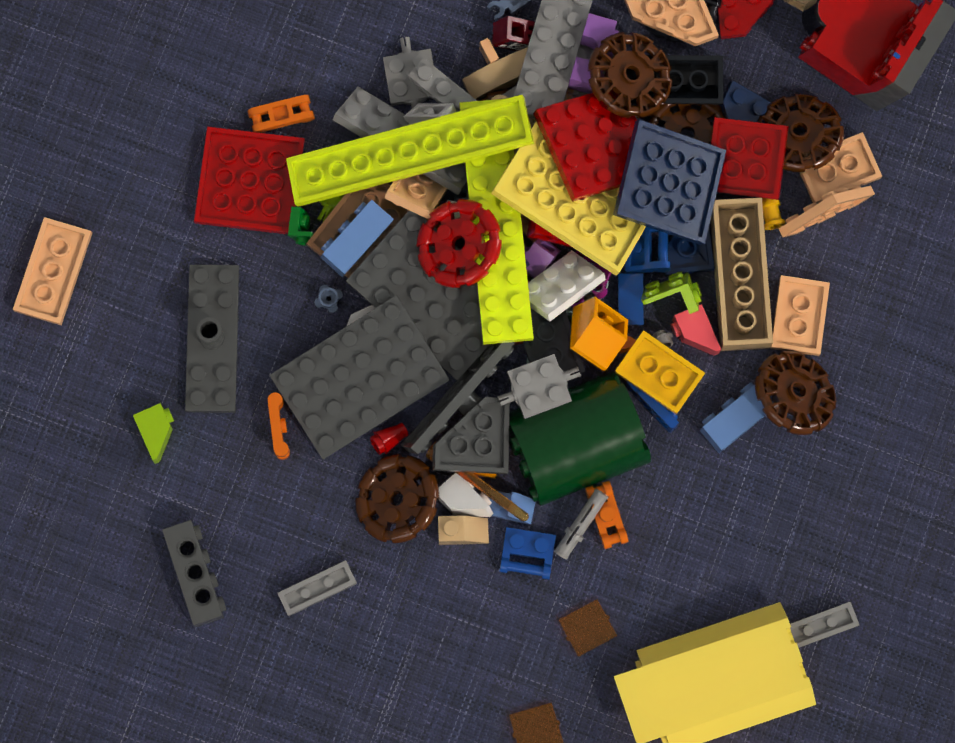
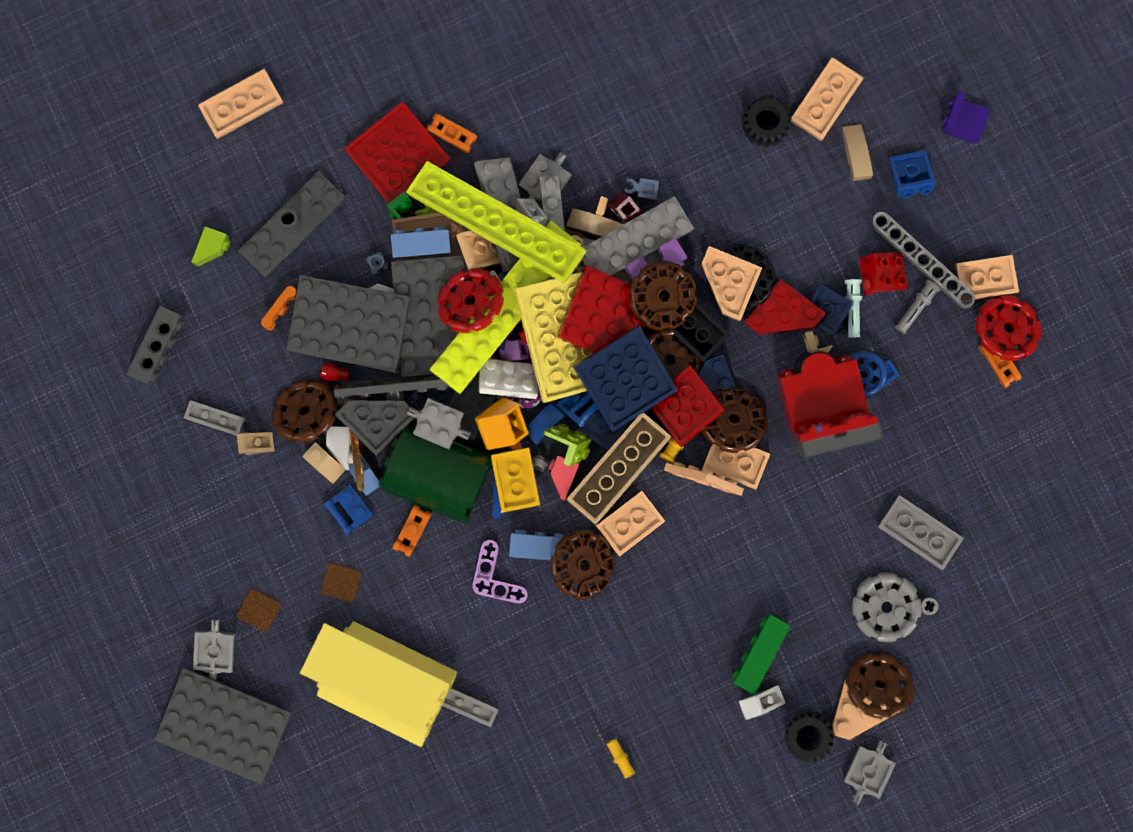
camera: 50 degrees right, 5 degrees up
(380, 573) = (255, 443): none -> tan slope
(565, 547) = (383, 523): light grey pin -> none
(719, 491) = (487, 577): none -> lavender beam

